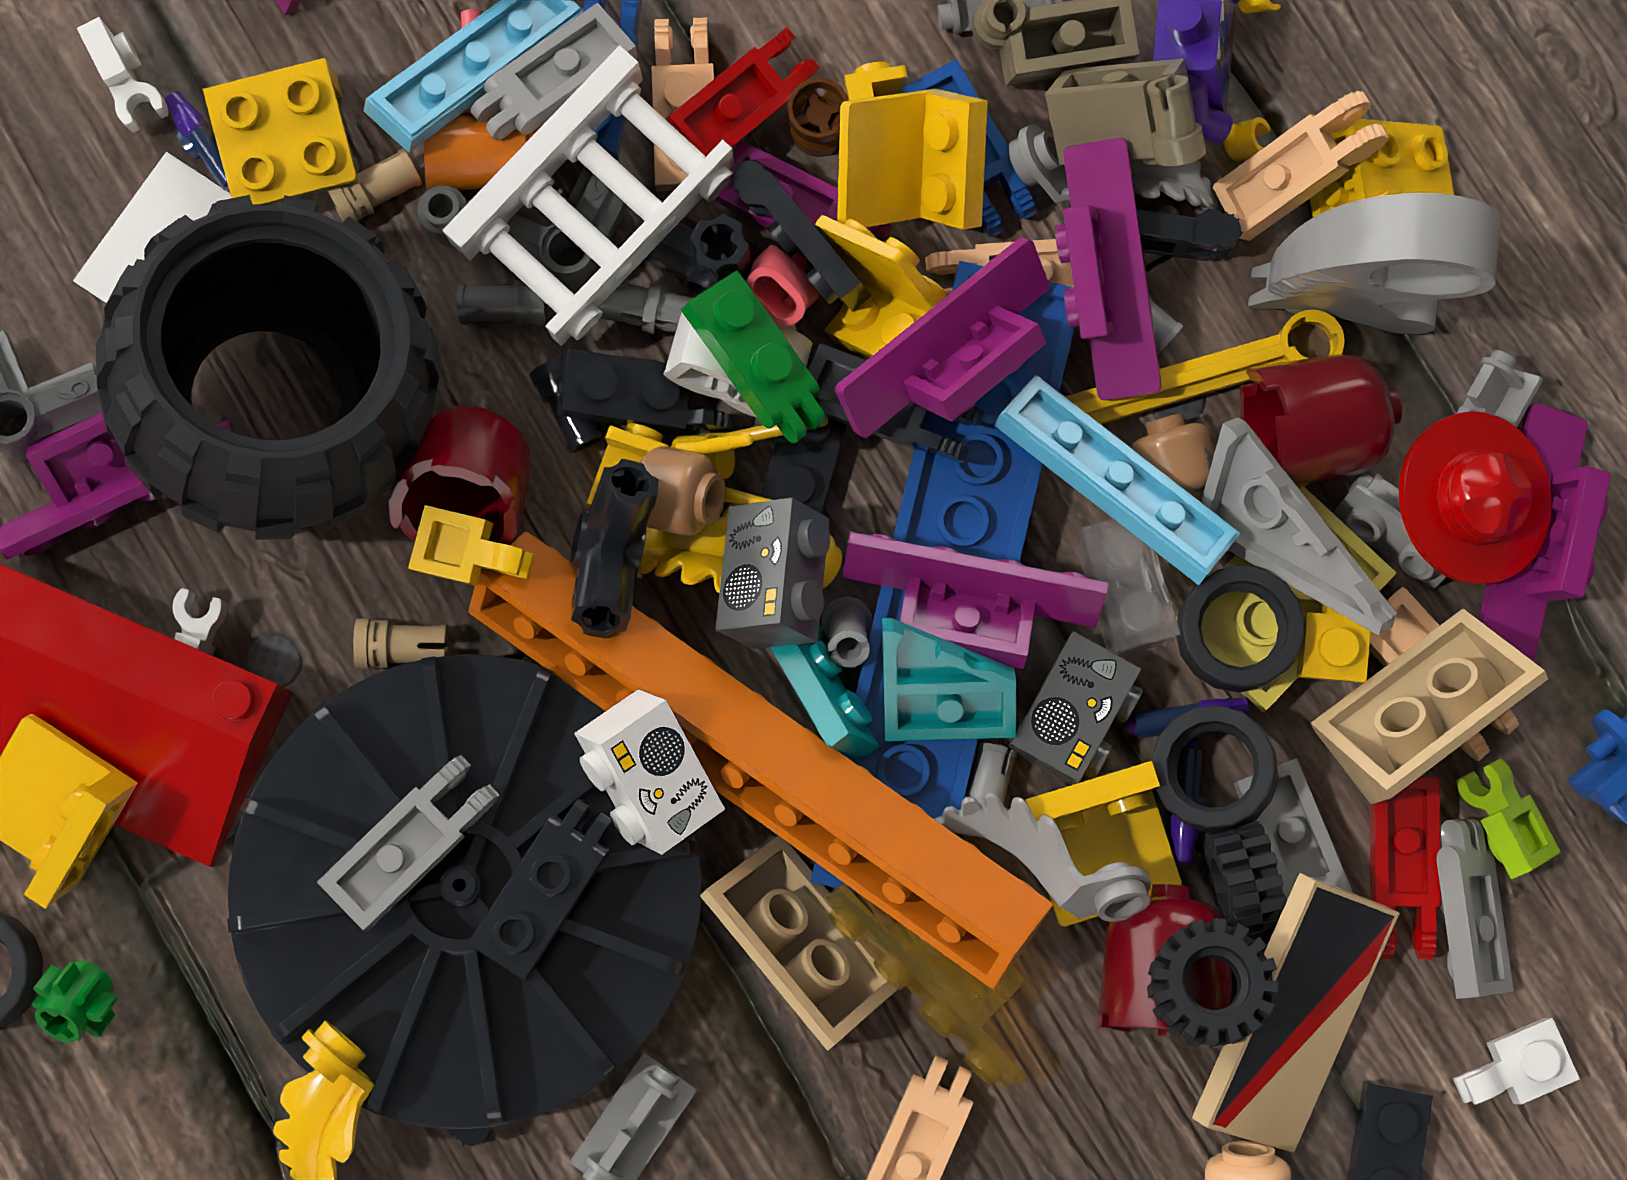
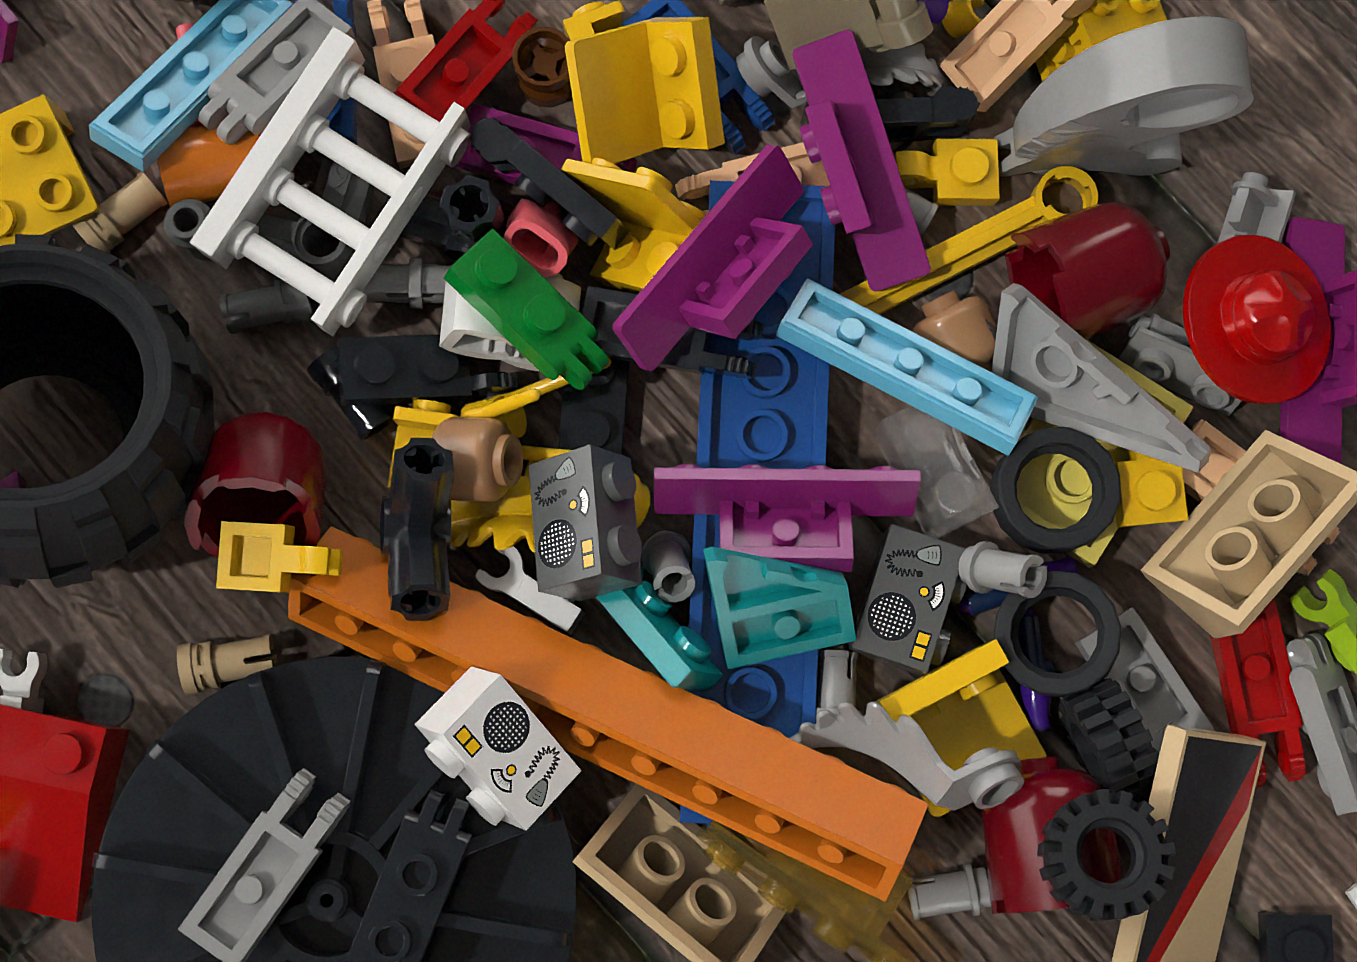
camera: 15 degrees left, 0 degrees up
(702, 629) = (524, 590): none -> white plate
(1060, 1001) = (949, 893): none -> light grey pin
(1160, 692) = (989, 568): none -> light grey pin
(1210, 296) = (958, 171): none -> yellow plate

